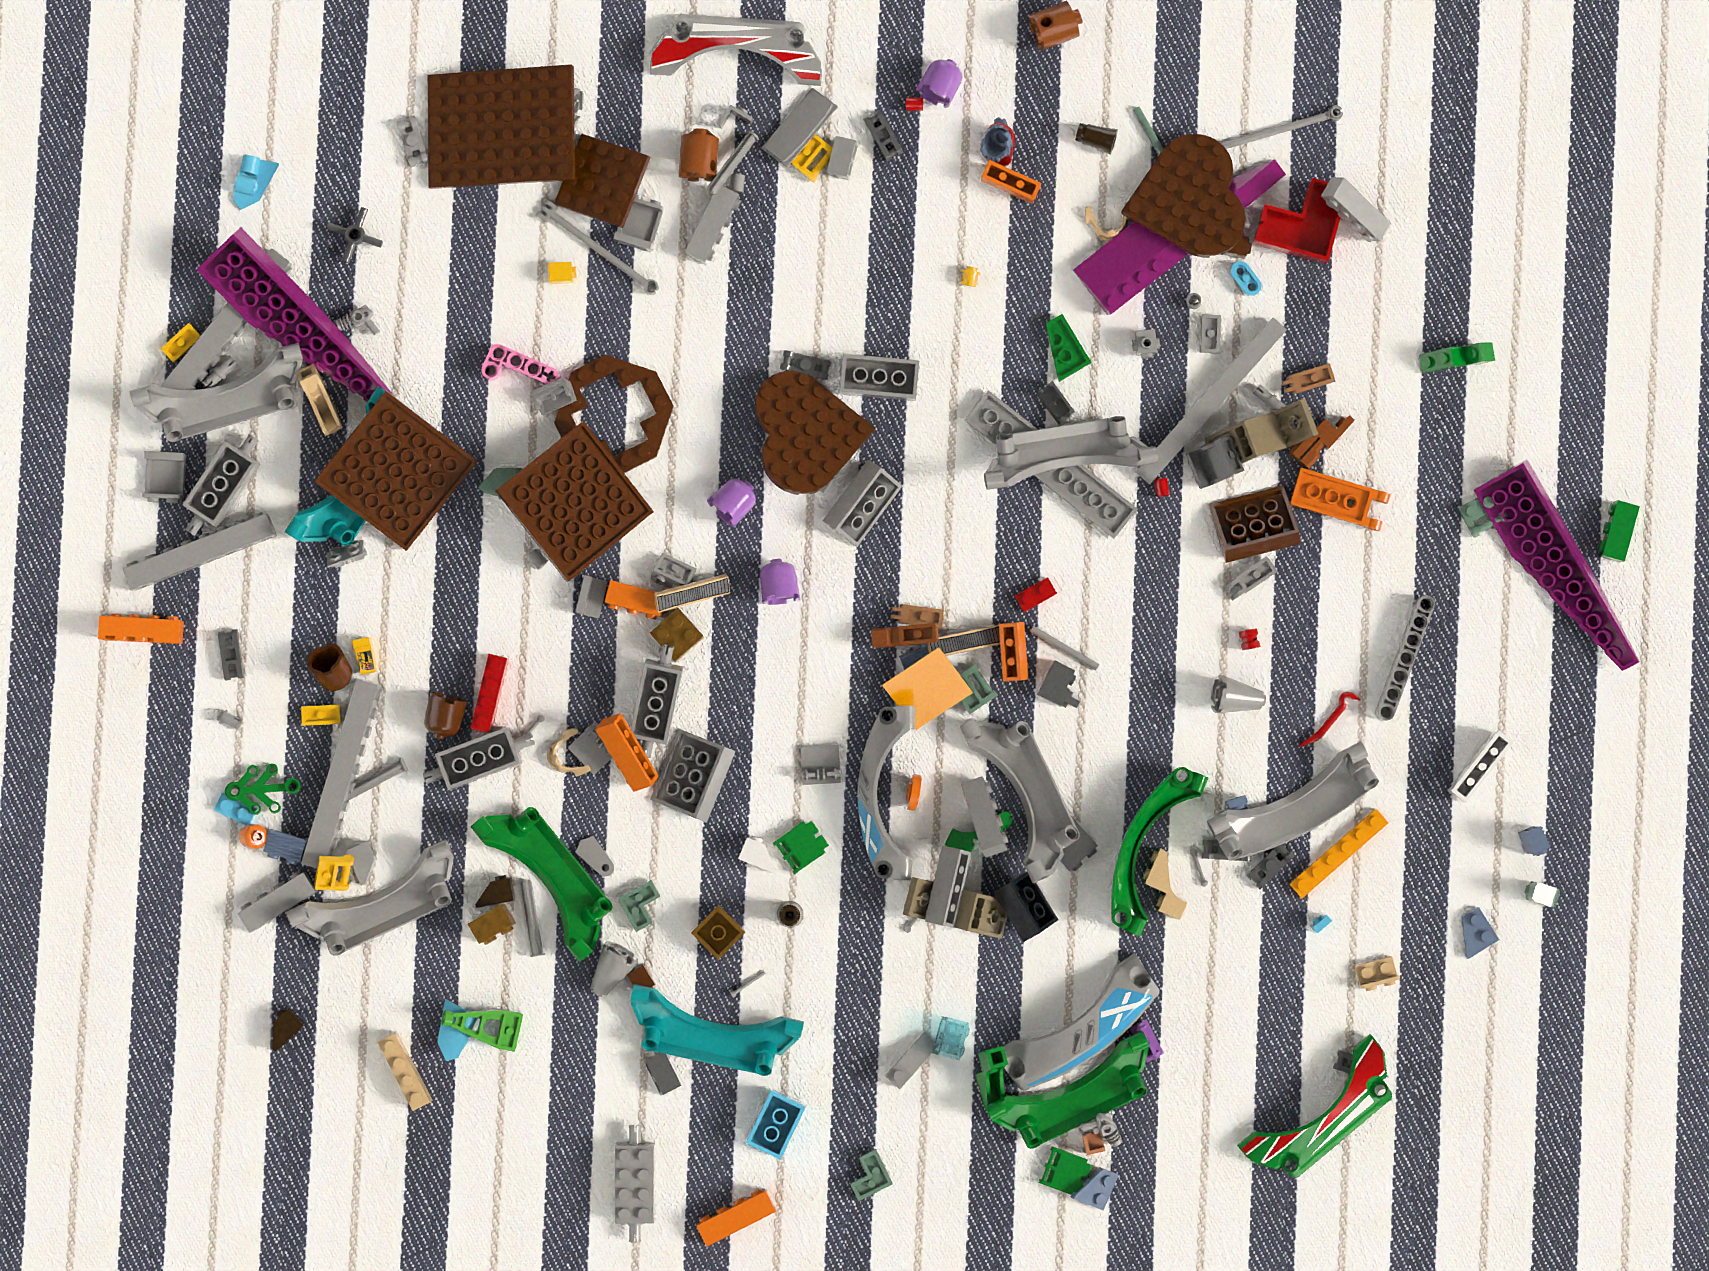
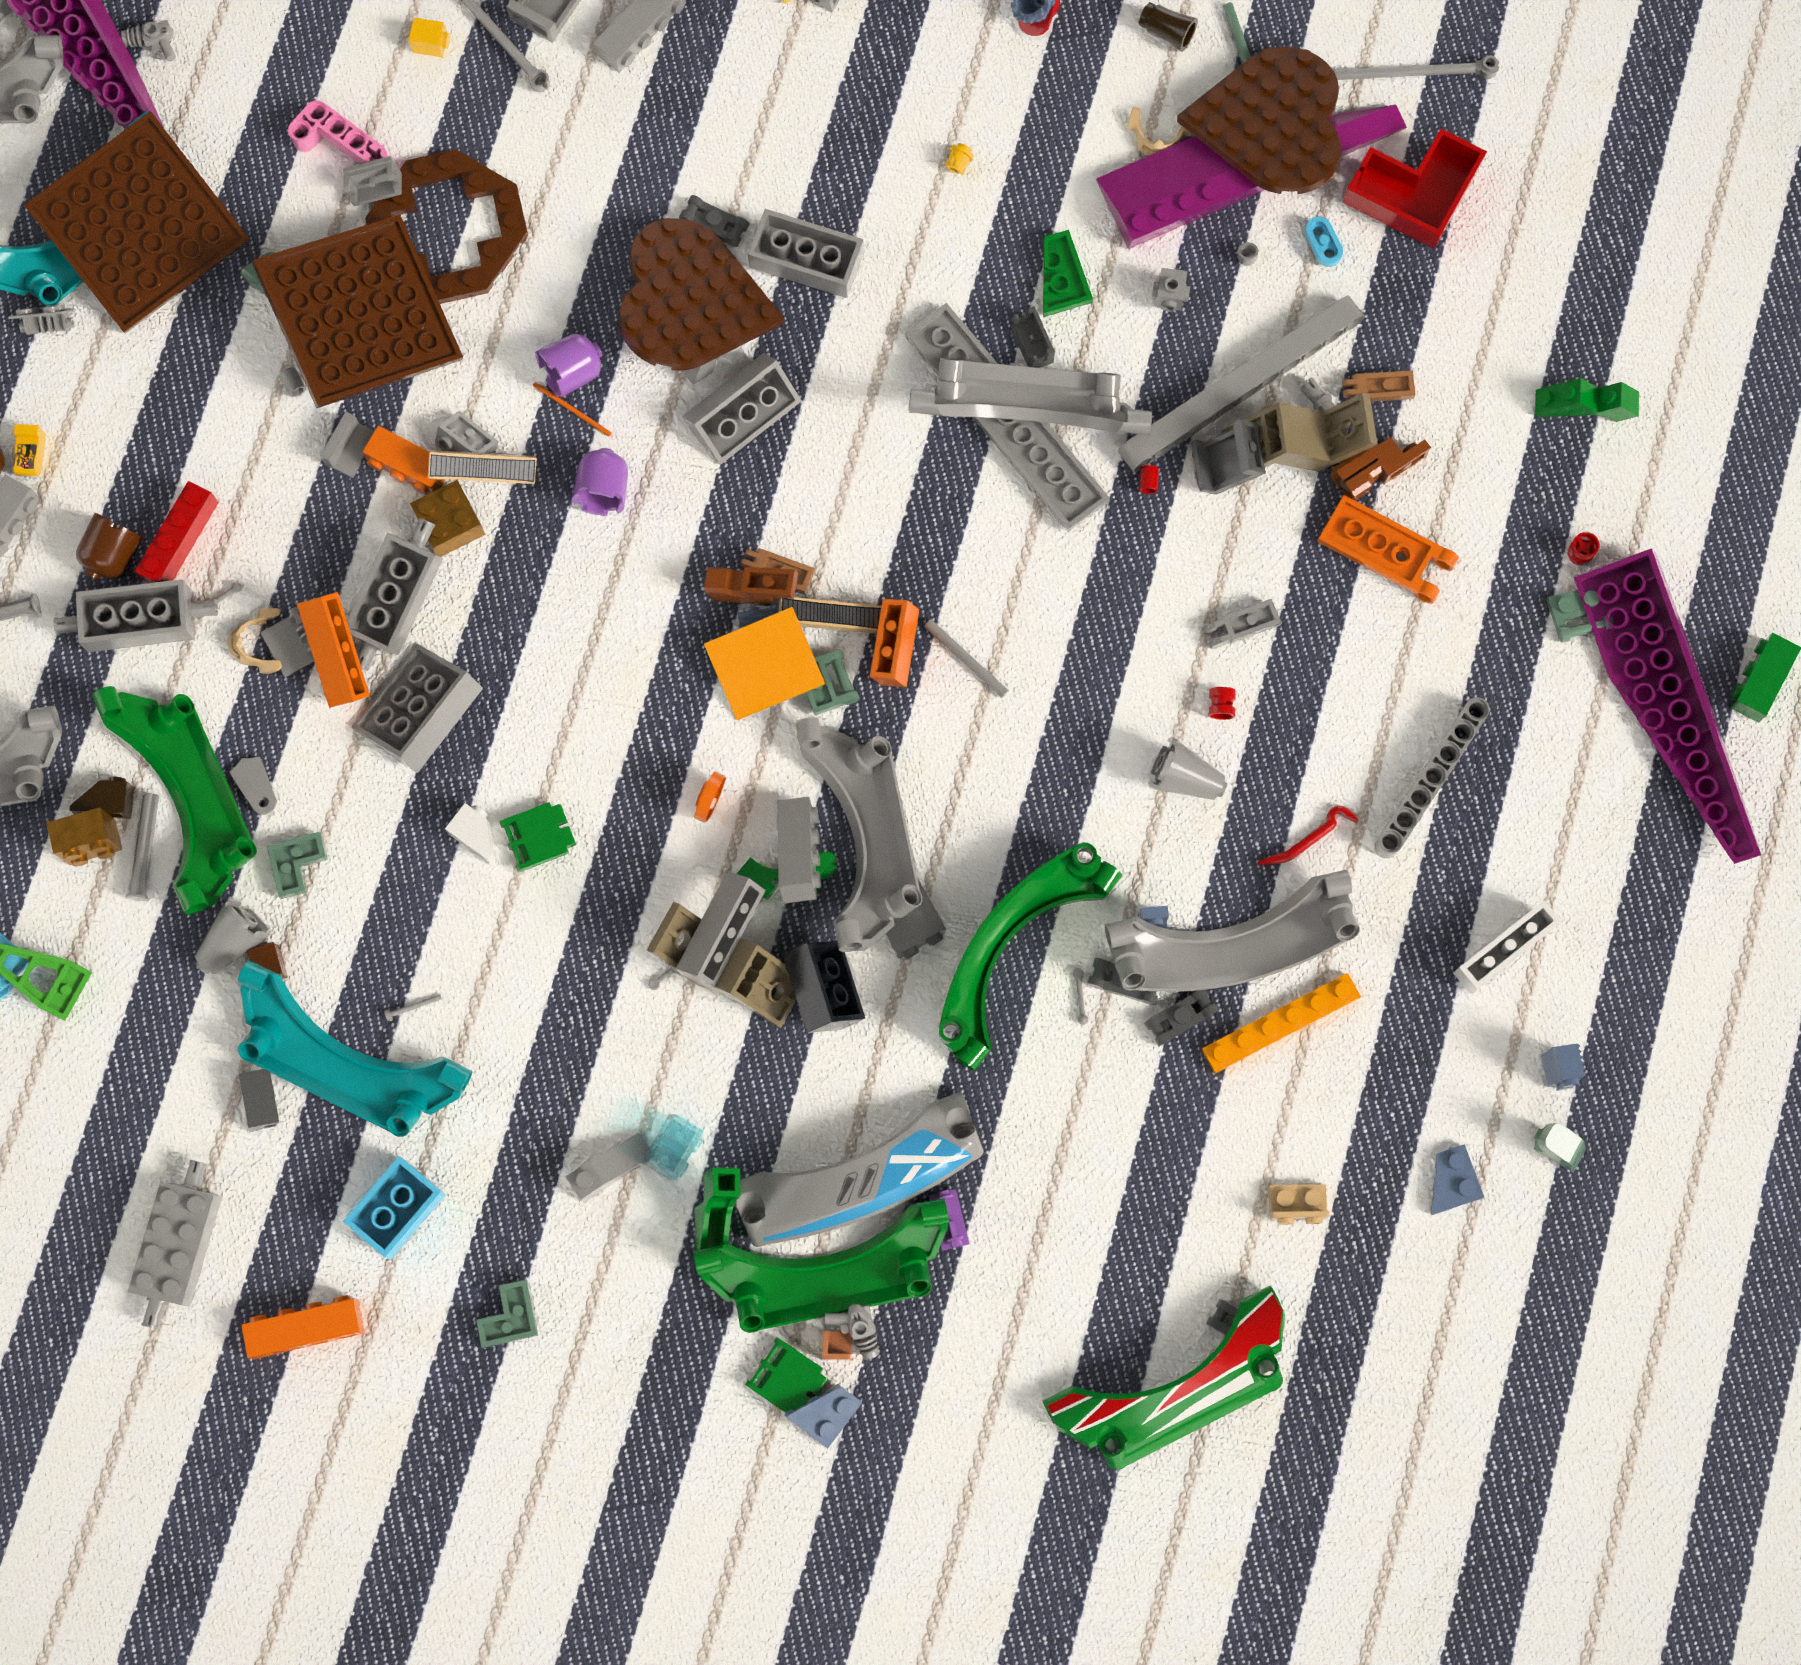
camera: 15 degrees right, 10 degrees down
(319, 399) = (70, 124): tan arch -> none
(718, 932) = (390, 923): pearl gold brick -> none
(741, 530) = (572, 409): none -> orange axle
(790, 906) = (502, 930): dark brown plant -> none
(820, 764) = (593, 735): light grey hinge -> none
(876, 840) = (643, 859): light grey panel -> none
(1010, 182) = (1041, 52): orange brick -> none
(1035, 594) = (944, 580): red plate -> none
(1055, 685) = (941, 704): dark grey hinge -> none
(1159, 879) = (1019, 997): tan arch -> none
(1210, 333) = (1260, 300): light grey plate -> none
(1241, 249) = (1322, 200): reddish brown brick -> none
(1255, 524) = (1264, 555): reddish brown slope -> none
(1320, 923) = (1233, 1112): medium azure plate -> none
(1355, 209) = (1490, 178): brick -> none
(1479, 467) = (1587, 544): none -> red wheel

